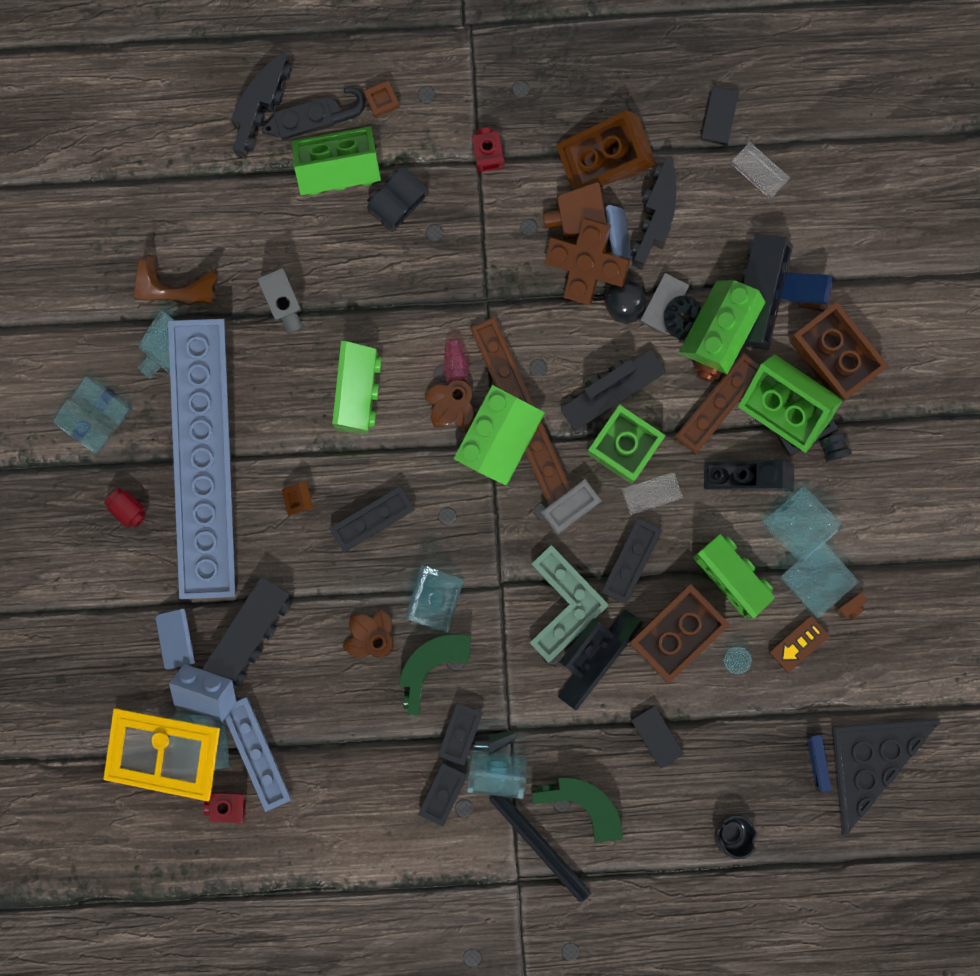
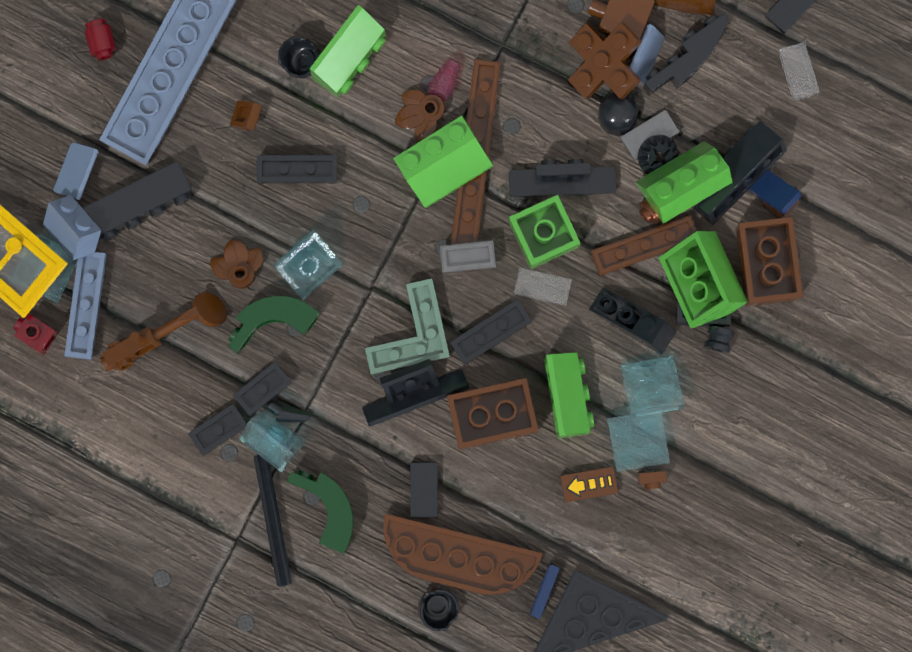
camera: 30 degrees right, 0 degrees up
(313, 418) = (297, 56): none -> black hair
(366, 692) = (122, 353): none -> reddish brown piece
(724, 779) = (457, 557): none -> reddish brown plate
(737, 660) = (529, 467): clear light blue plate -> none

